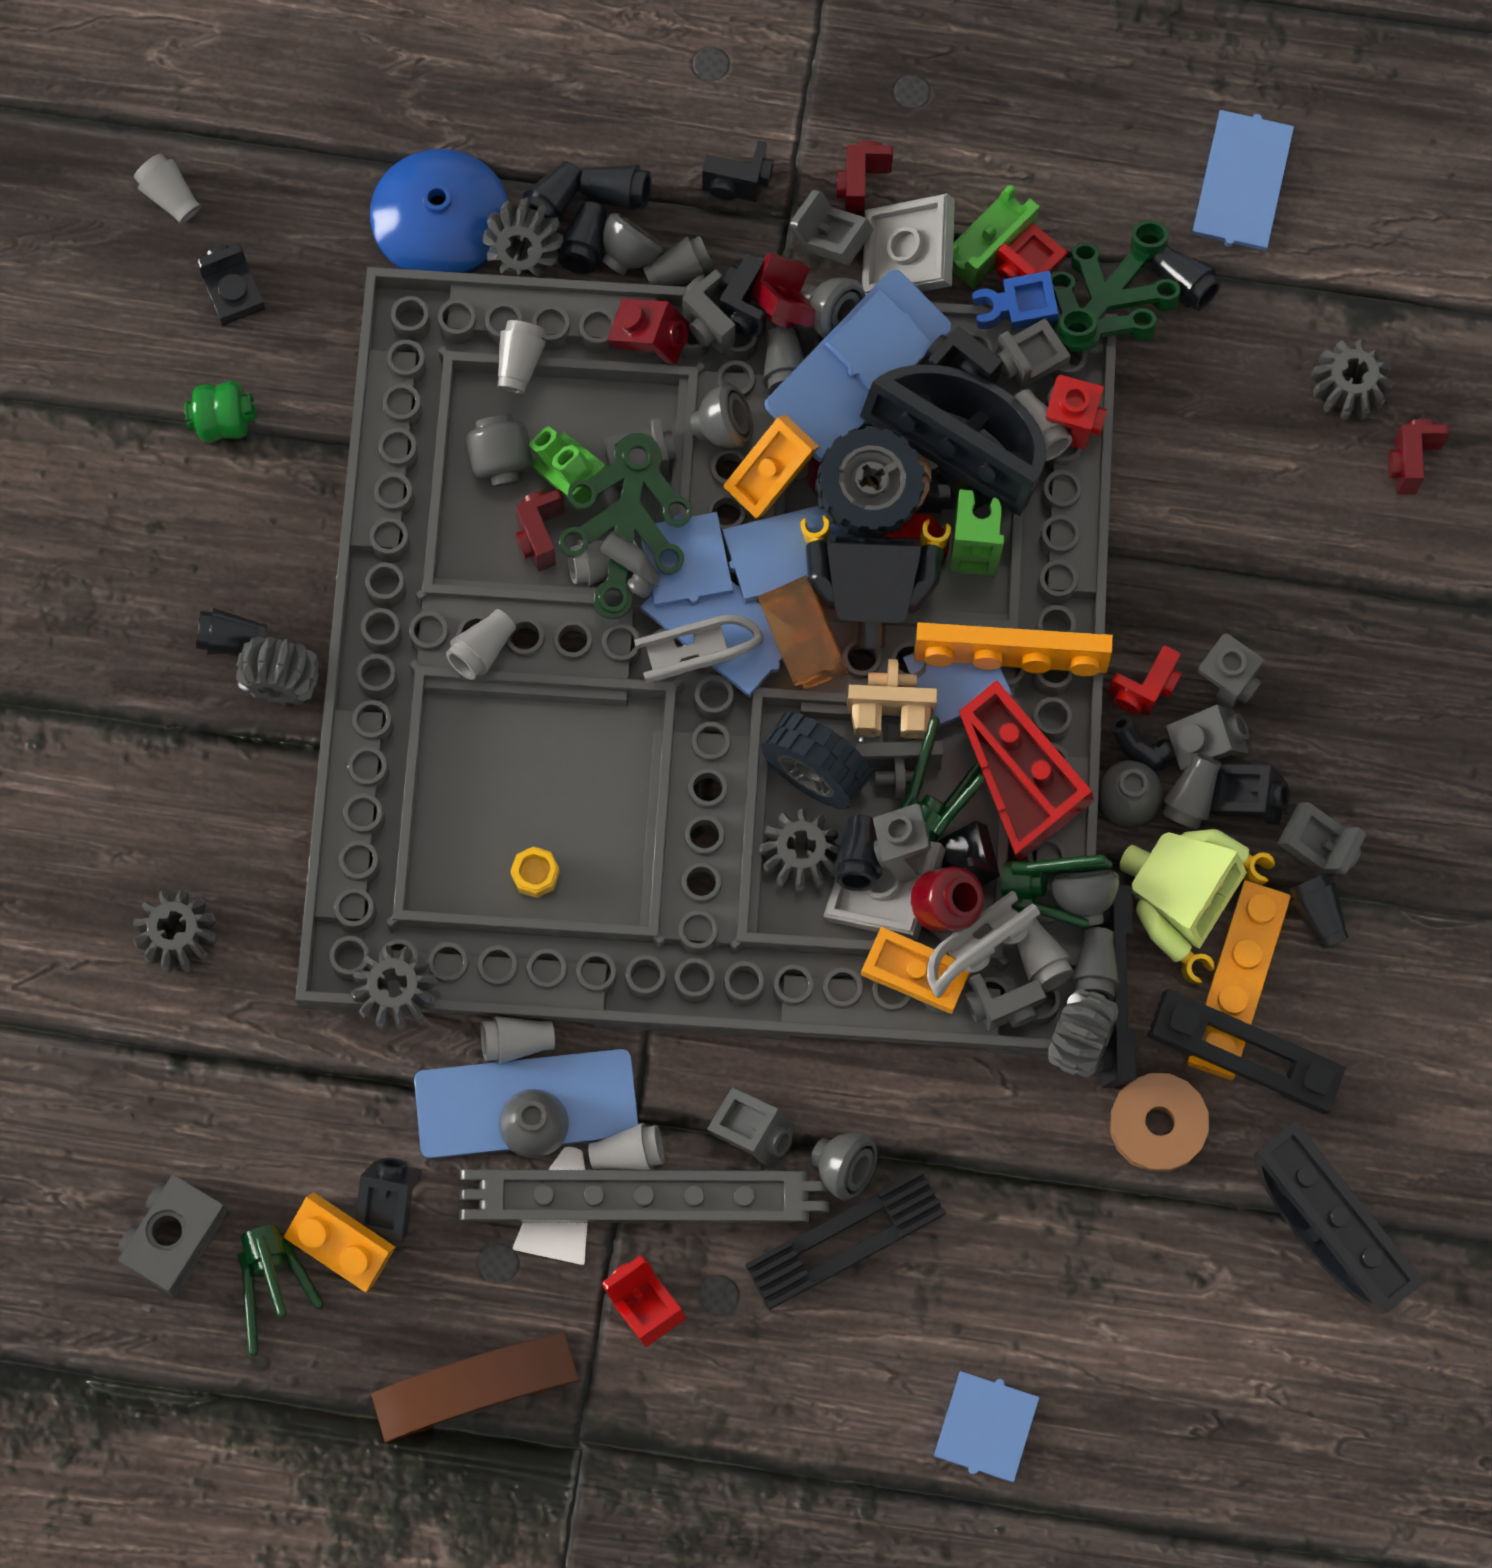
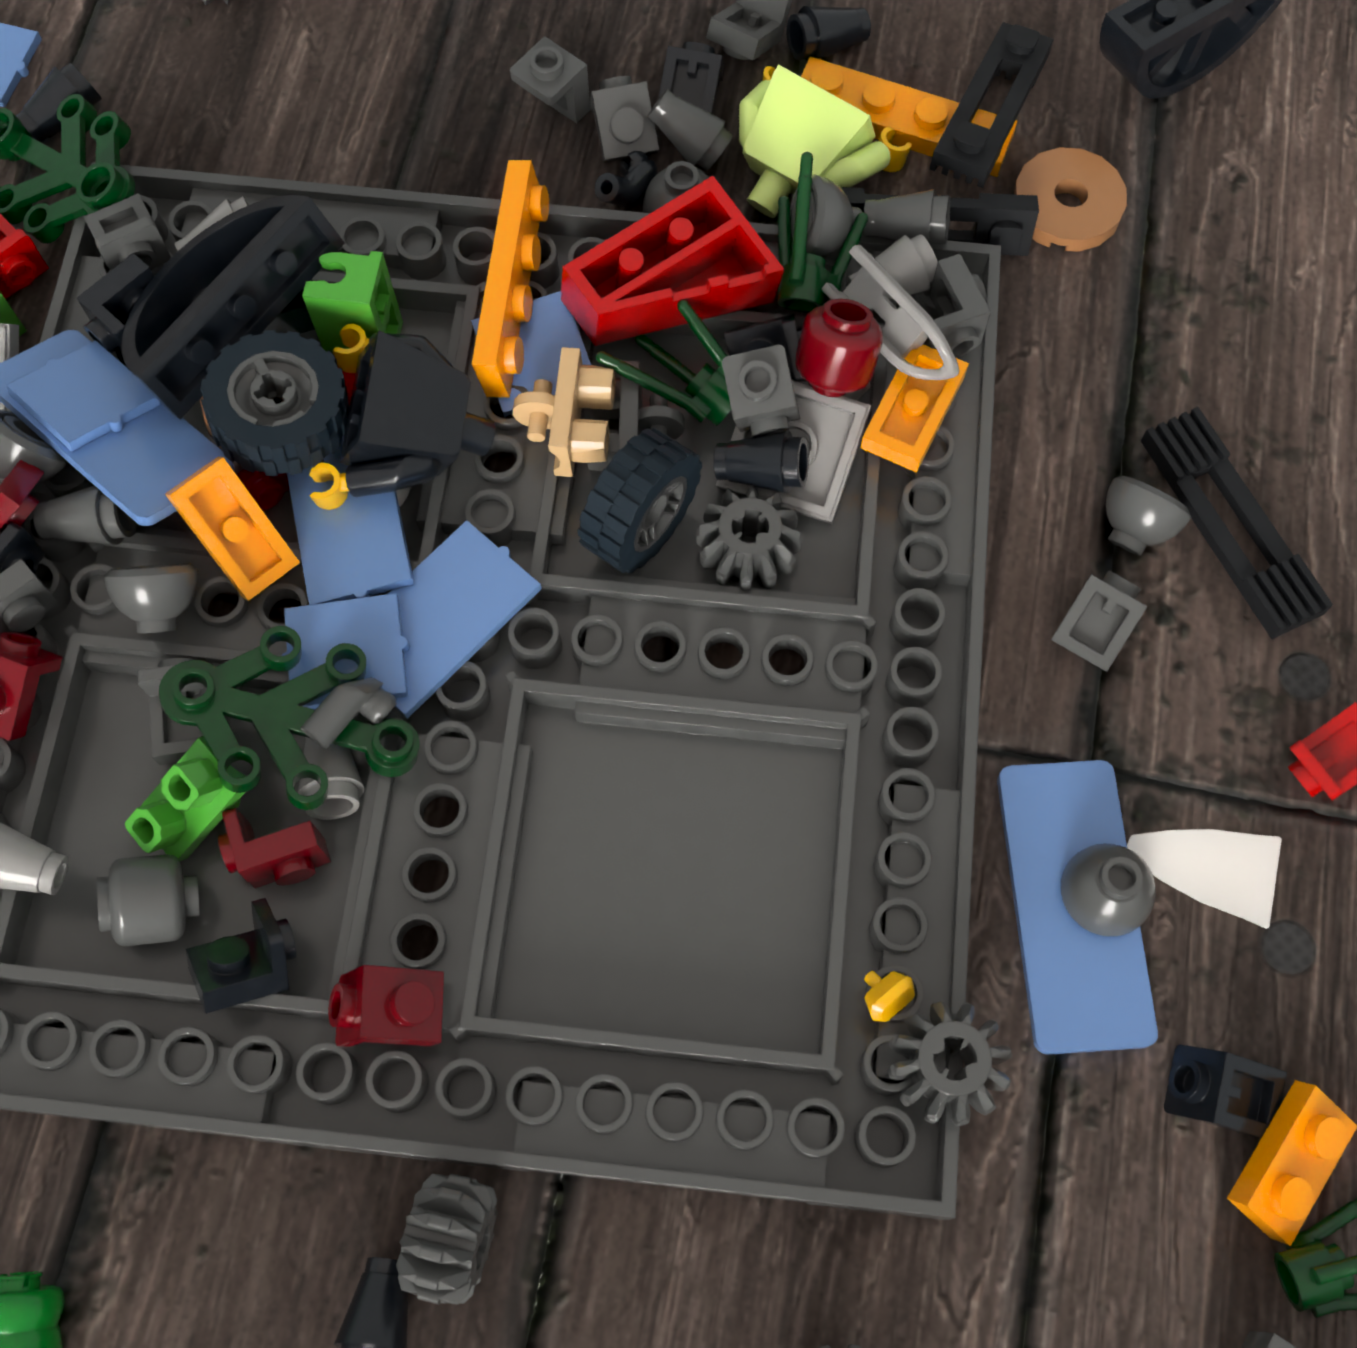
camera: 85 degrees left, 5 degrees down
(424, 615) = (387, 1006): none -> dark red bracket
(443, 951) = (888, 994): none -> yellow rock
(455, 518) = (243, 964): none -> black bracket
(479, 646) = (443, 928): light grey cone -> none
(515, 1038) = (996, 914): light grey cone -> none
(535, 872) = (766, 872): yellow tile -> none
(629, 1150) = (1140, 768): light grey cone -> none
(641, 1196) = (1199, 770): dark grey hinge -> none
(708, 646) = (475, 621): light grey piece -> none
(803, 633) = (465, 504): clear orange hinge -> none
(1025, 302) = (53, 244): blue plate -> none
(1076, 405) = (210, 179): red bracket -> none
(1083, 1033) = (999, 223): dark grey gear -> none
(1160, 680) = (556, 162): red bracket -> none

